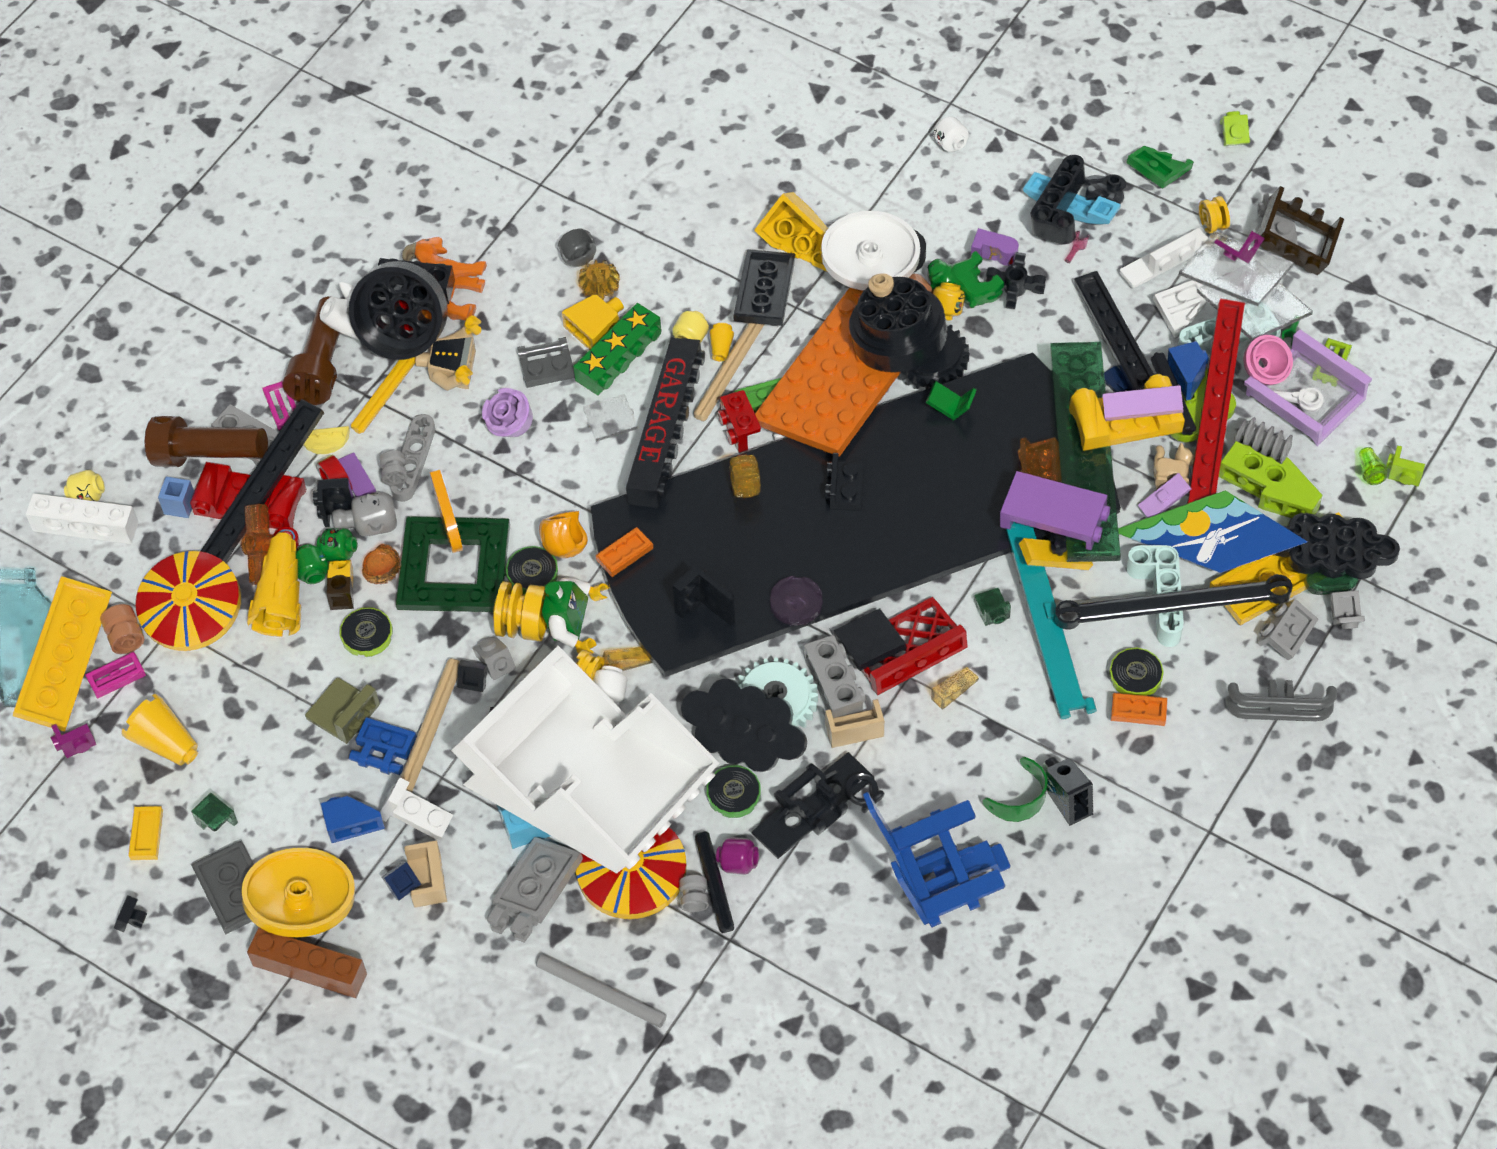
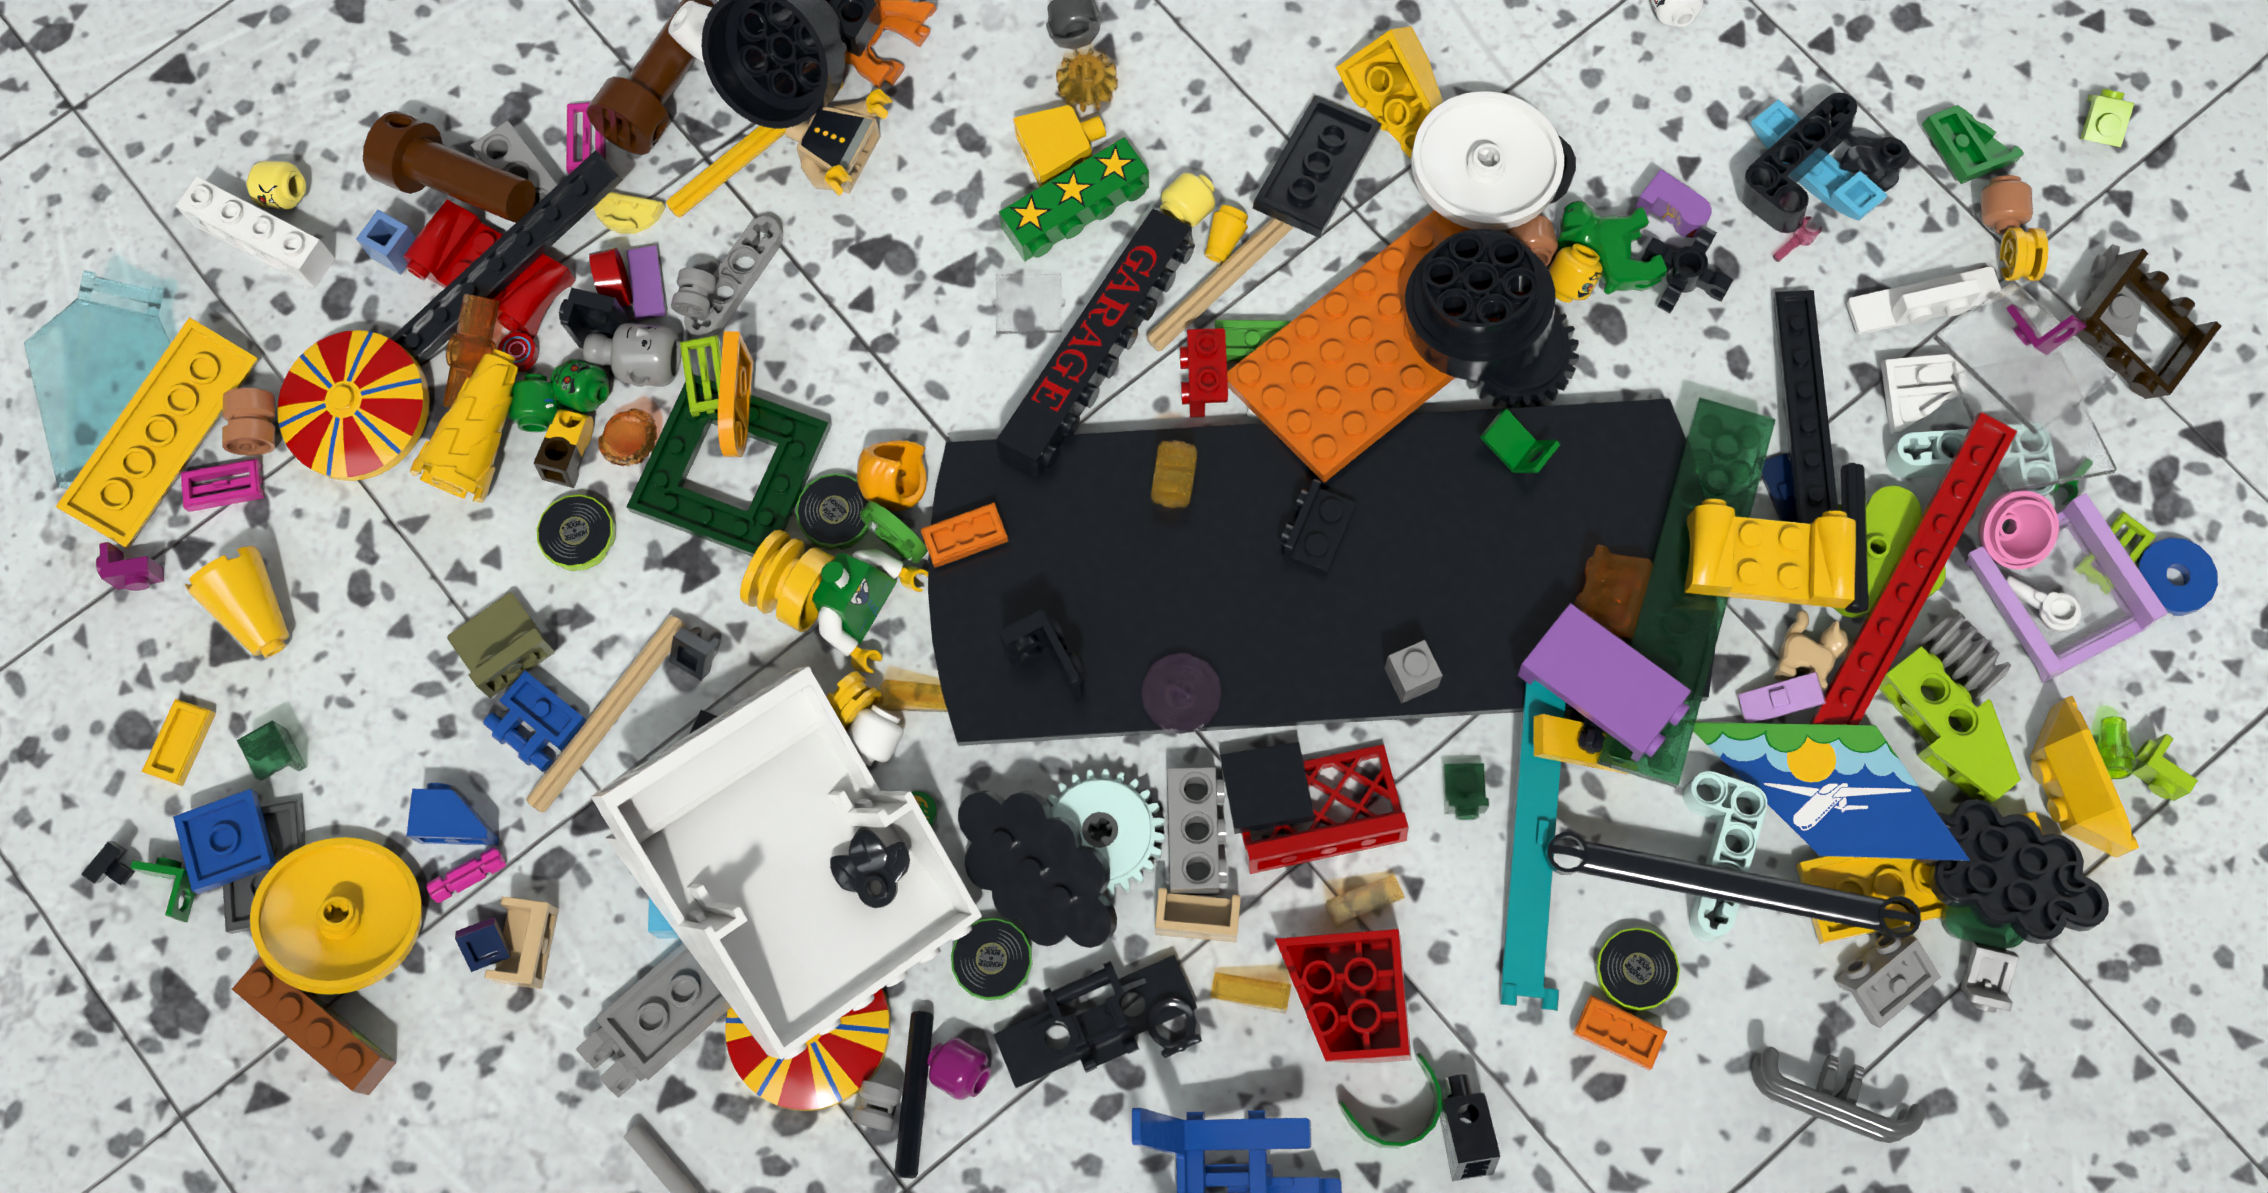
camera: 20 degrees right, 15 degrees up
(173, 906) = (172, 870): none -> green bracket
(205, 873) = (224, 841): none -> blue plate
(371, 849) = (466, 875): none -> dark pink axle
(415, 811) = (540, 843): white bracket -> none
(427, 529) = (709, 404): none -> lime tile
(496, 656) = (734, 633): light grey bracket -> none
(507, 413) = (881, 257): lavender cone -> none
(546, 369) = (968, 198): dark grey plate -> none
(577, 564) = (894, 532): none -> bright green tile
(637, 750) = (869, 862): none -> black plate
(881, 284) = (1472, 248): tan plate -> none
(906, 758) = (1251, 992): none -> clear yellow piece
(935, 542) = (1413, 671): none -> light grey brick
(969, 733) = (1352, 993): none -> red wedge
(1142, 403) = (1800, 555): lavender tile -> none
(1188, 366) = (1892, 503): blue slope -> none
(1193, 189) = (2006, 203): none -> nougat head
(1360, 489) = (2078, 782): none -> yellow wedge
(1376, 353) = (2192, 562): none -> blue tile

